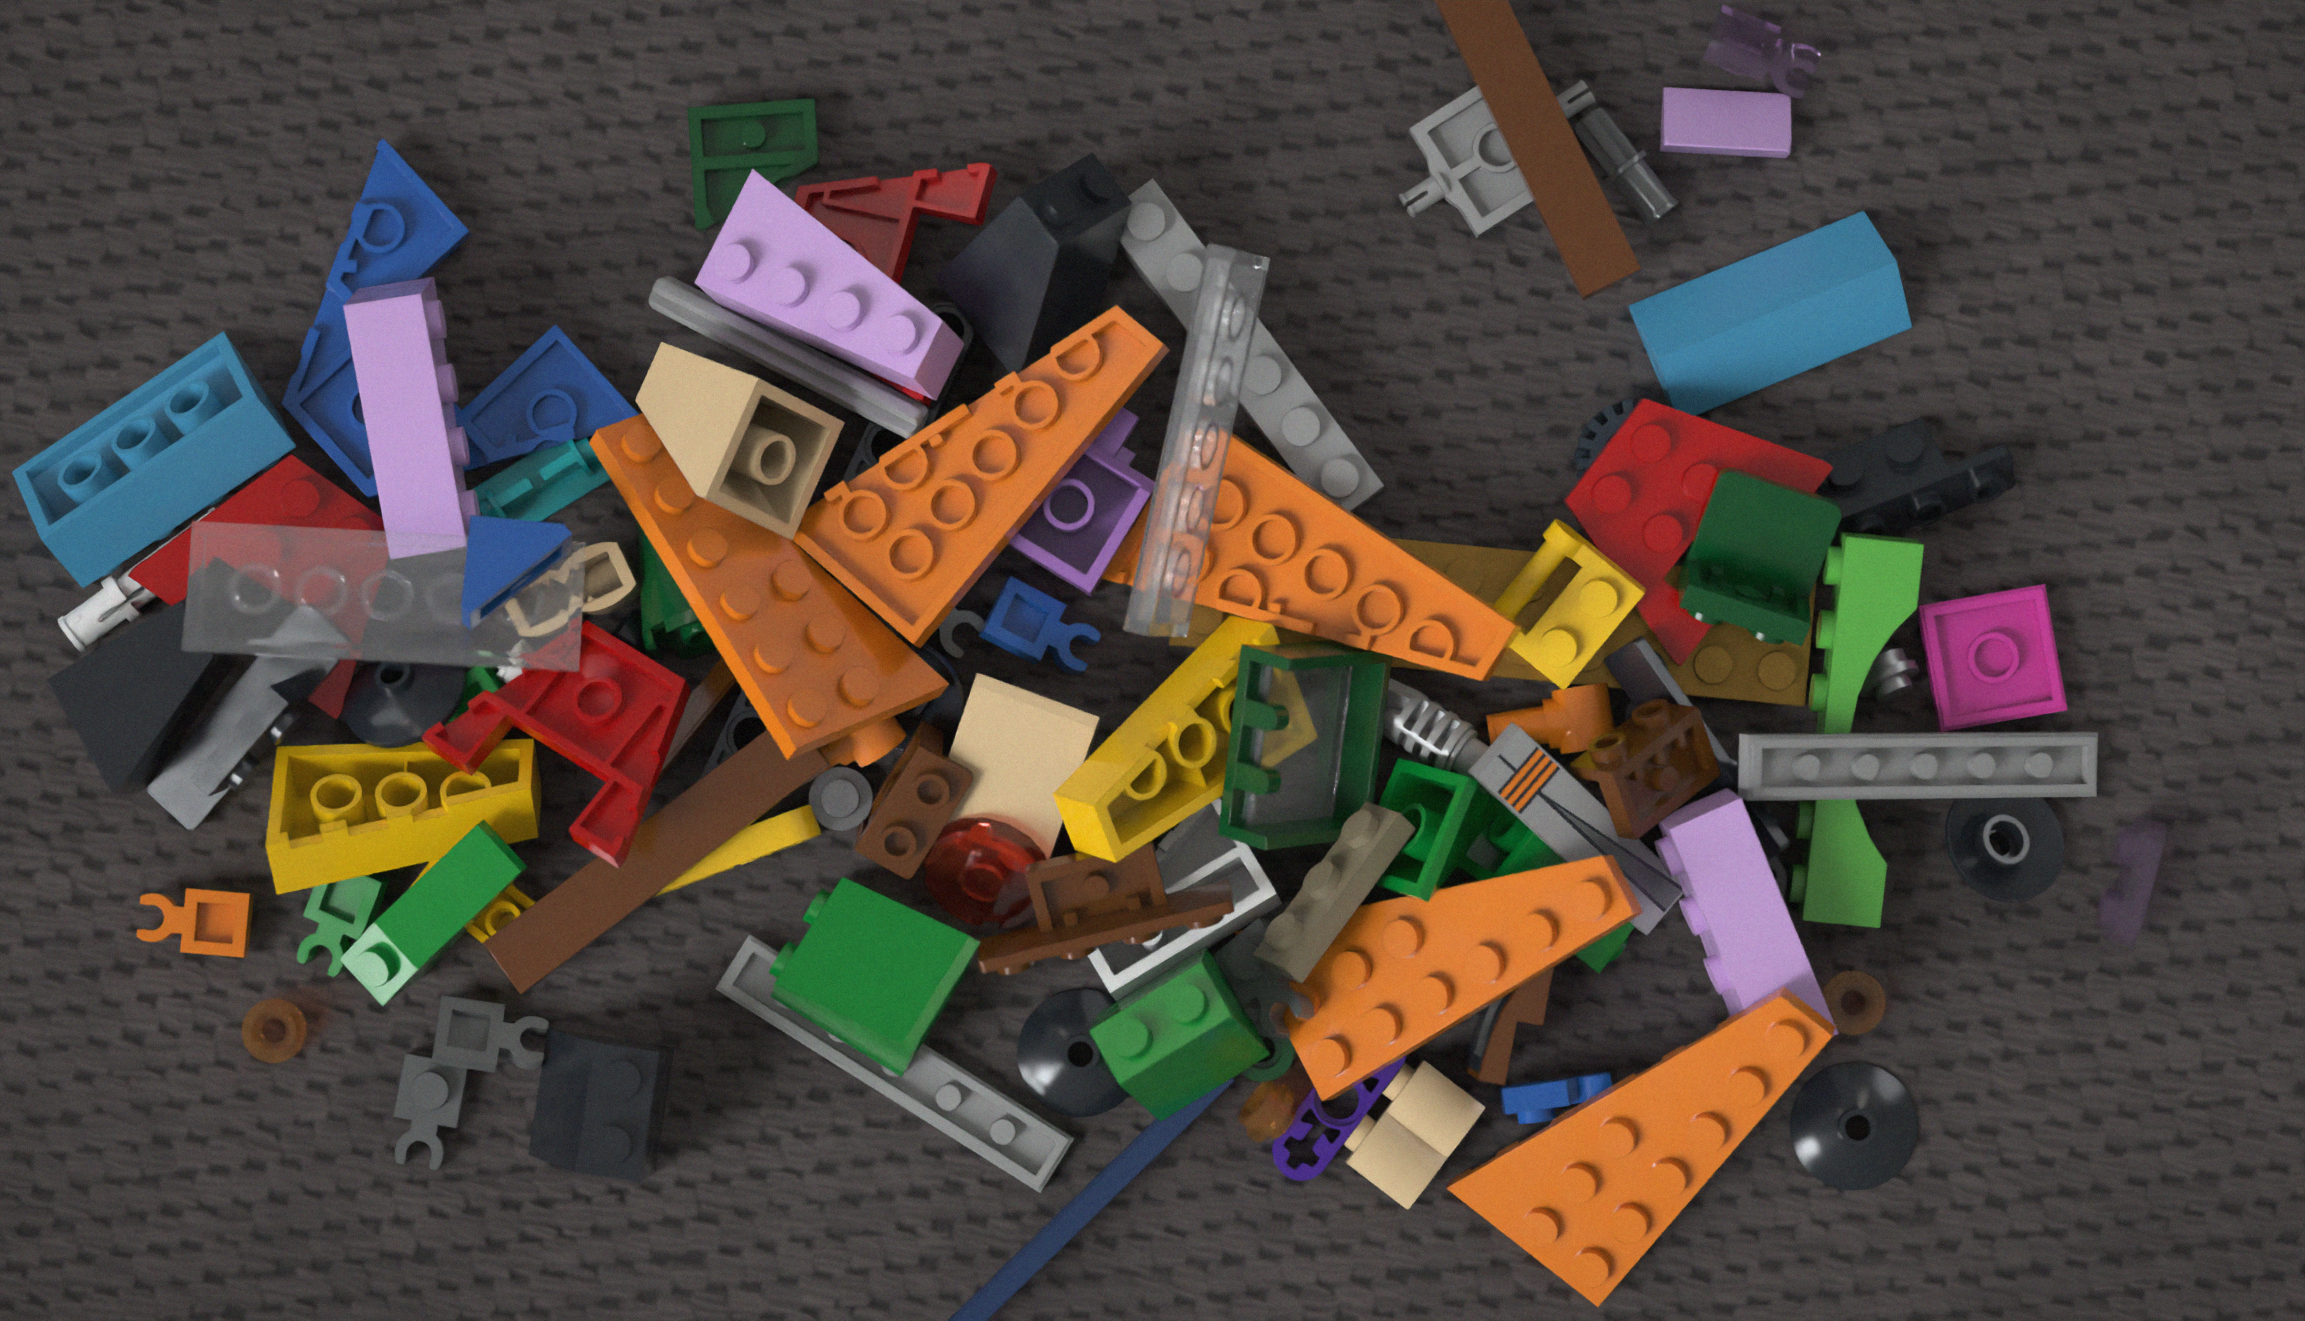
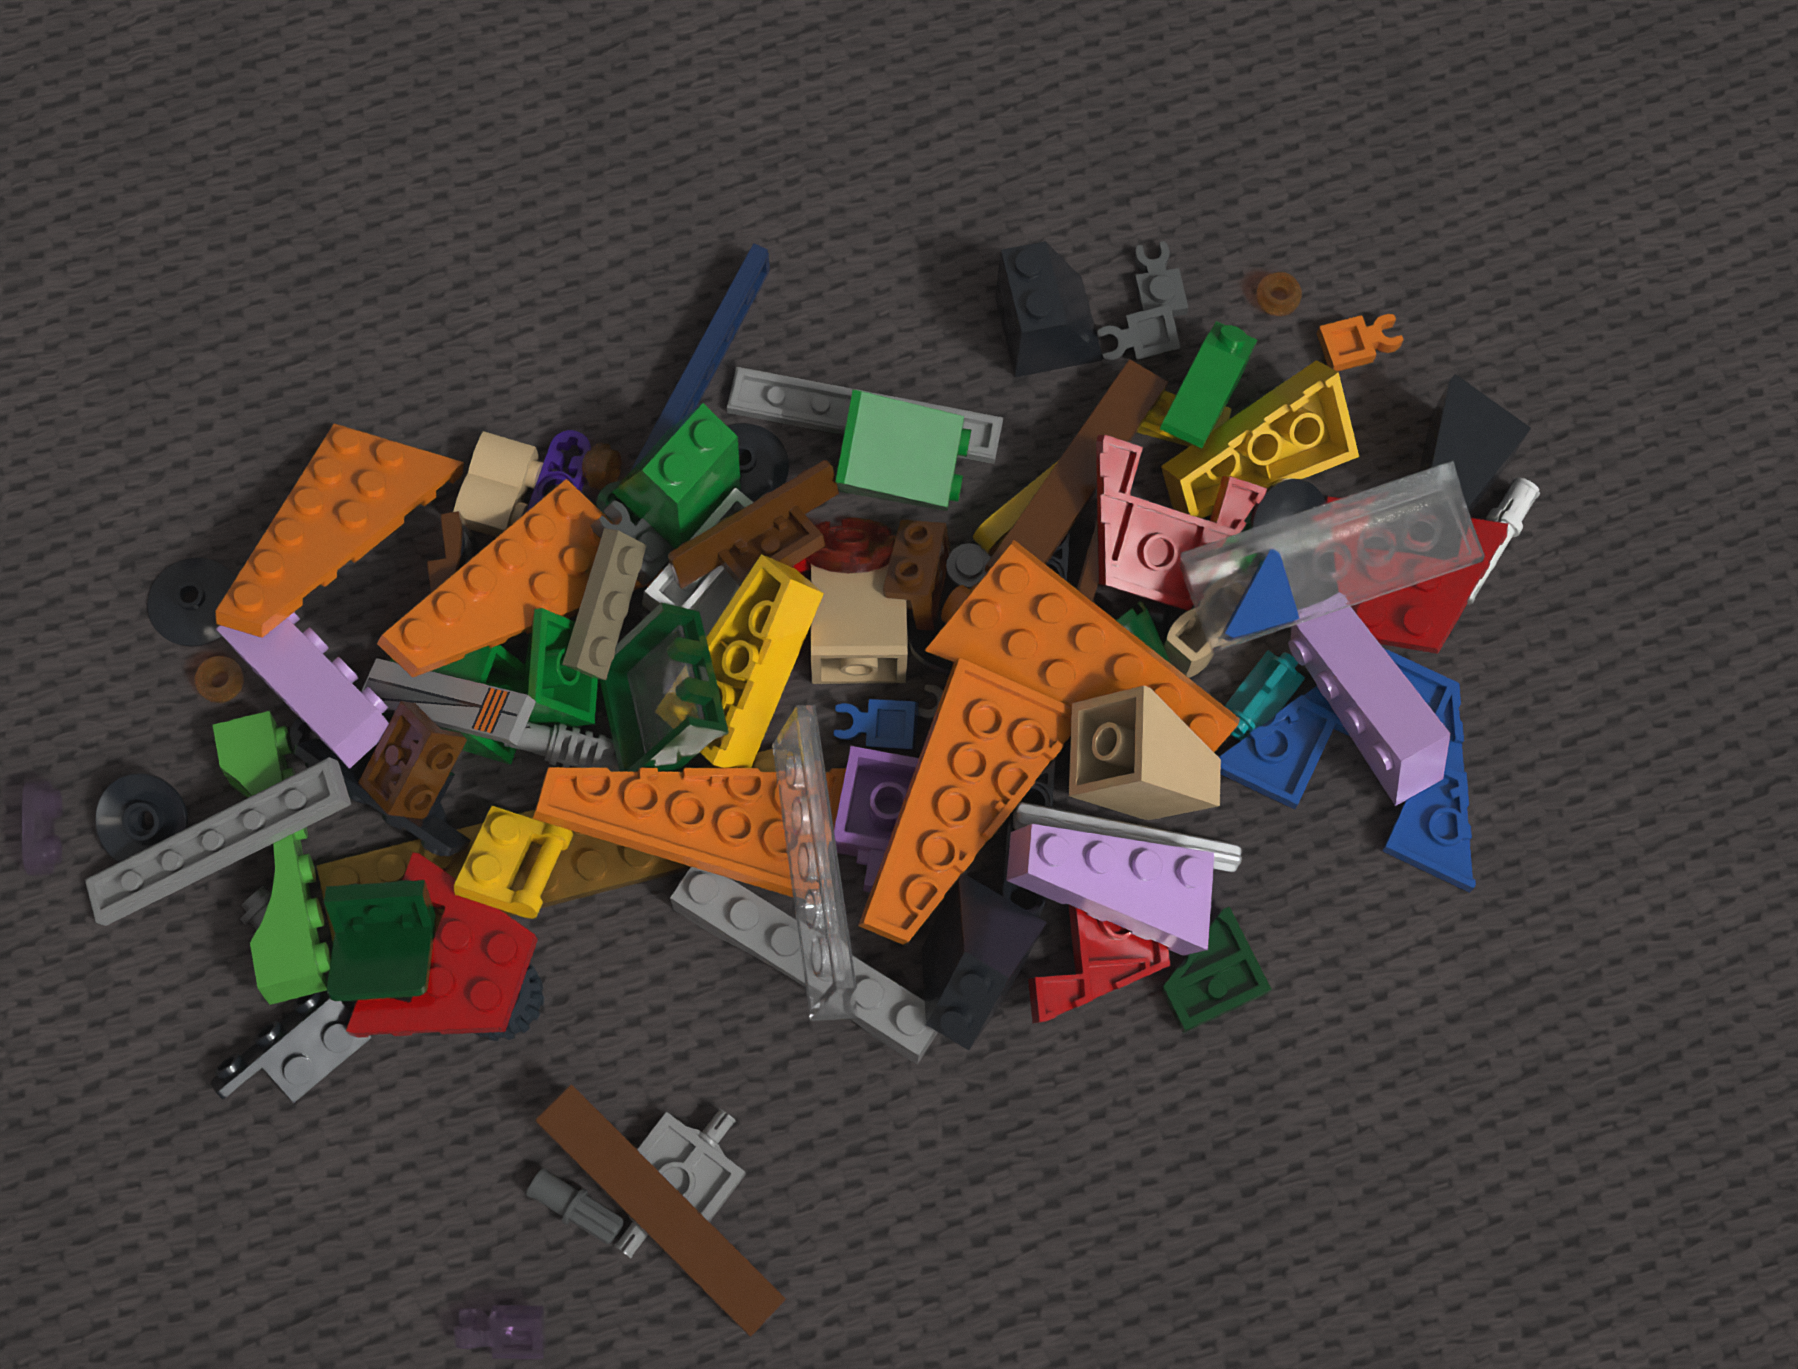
camera: 150 degrees right, 15 degrees down
(152, 460) = (1527, 616): dark azure slope -> none
(235, 734) = (1393, 444): bracket -> none
(342, 912) = (1265, 371): green plate -> none
(1538, 1099) = (415, 540): blue plate -> none
(1564, 721) = (475, 792): orange pin -> none
(1725, 122) = (511, 1269): lavender slope -> none
(1773, 315) = (430, 1139): dark azure slope -> none
(1991, 658) = (189, 948): dark pink plate -> none

